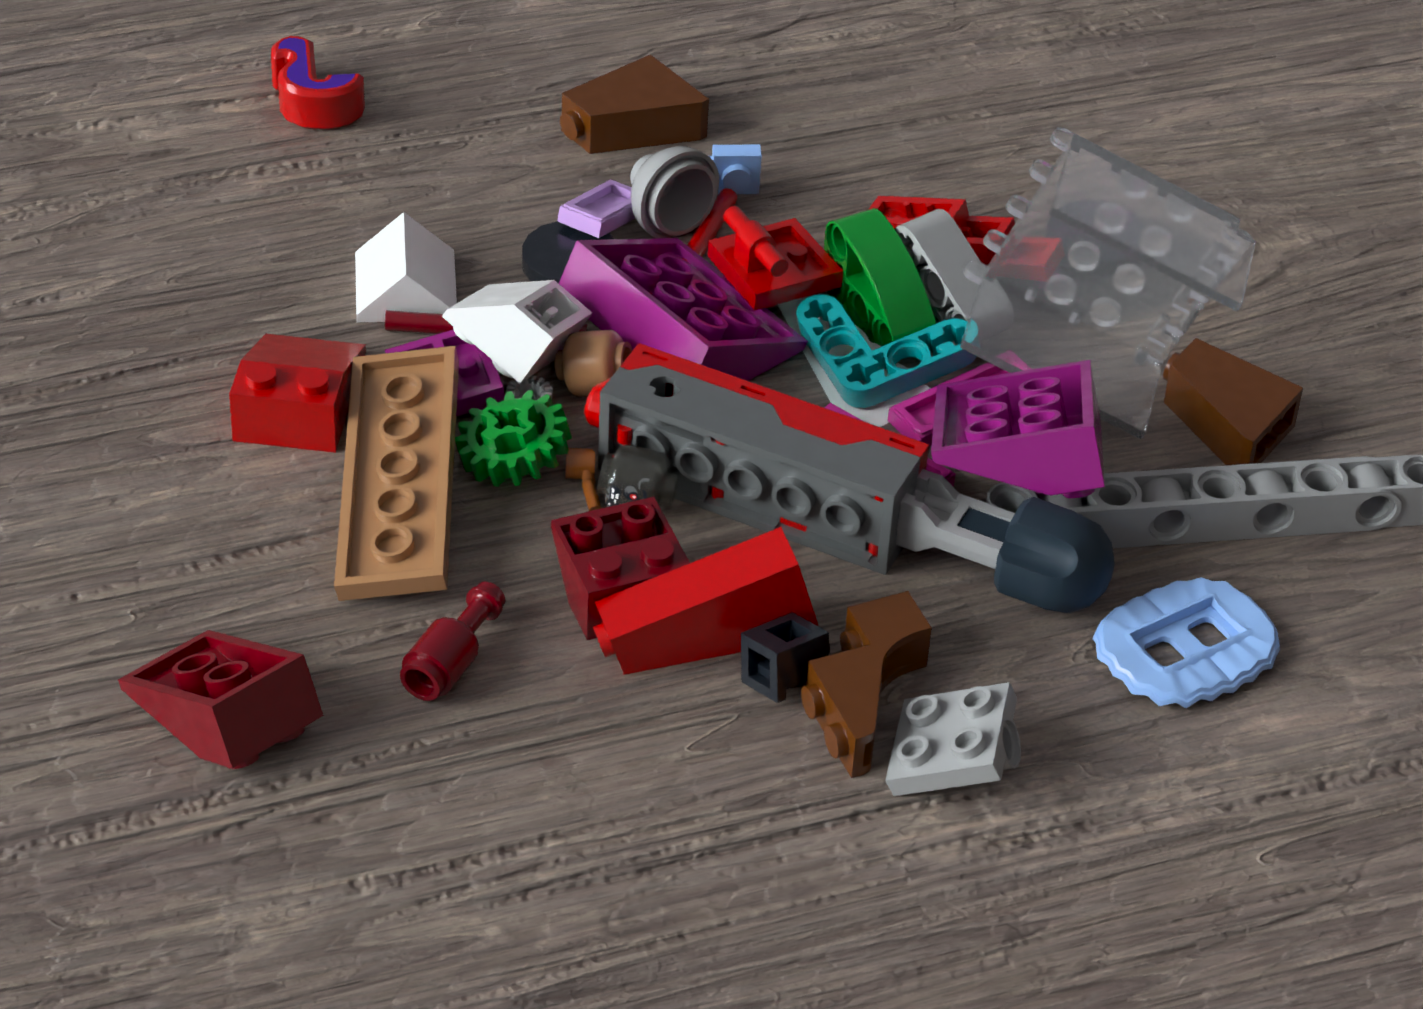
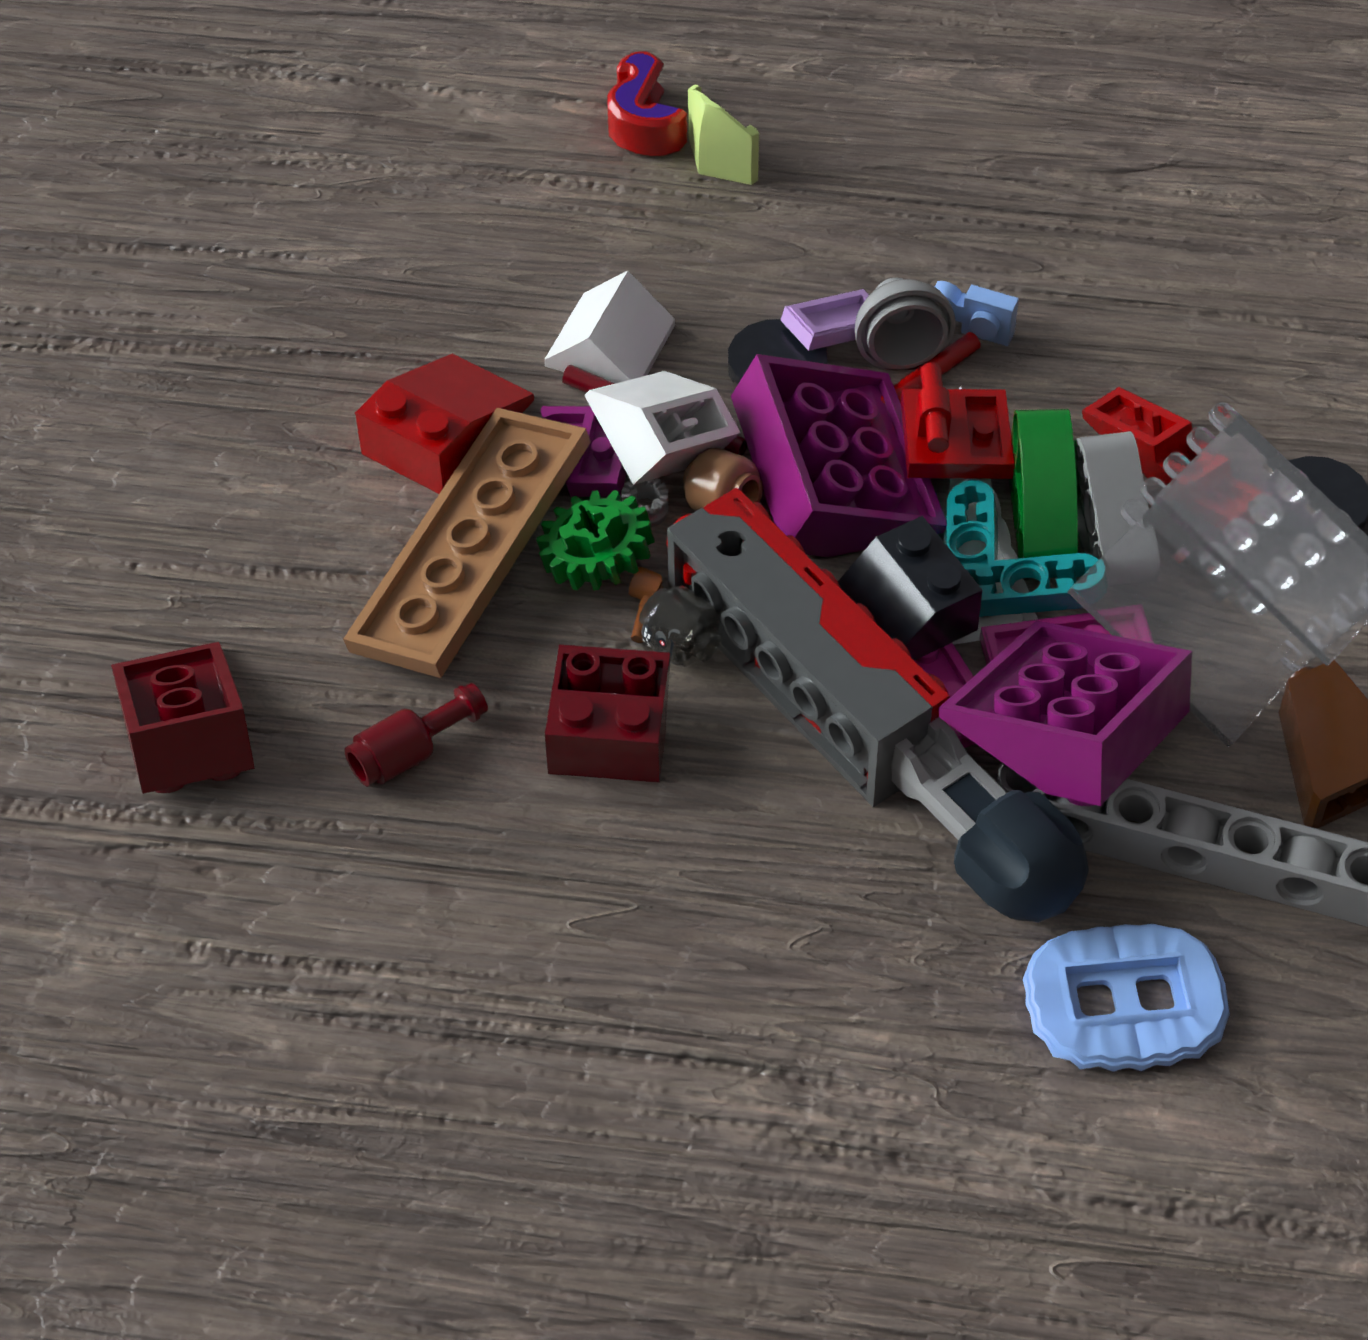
camera: 30 degrees right, 10 degrees up
(404, 90) = (720, 142): none -> yellowish green slope
(634, 109) = (929, 219): reddish brown slope -> none
(703, 605) = (664, 788): red slope -> none
(779, 653) = (706, 862): black brick -> none
(832, 375) = (915, 588): none -> black slope
(844, 689) = (751, 920): reddish brown arch -> none
(954, 740) = (811, 1020): light grey plate -> none

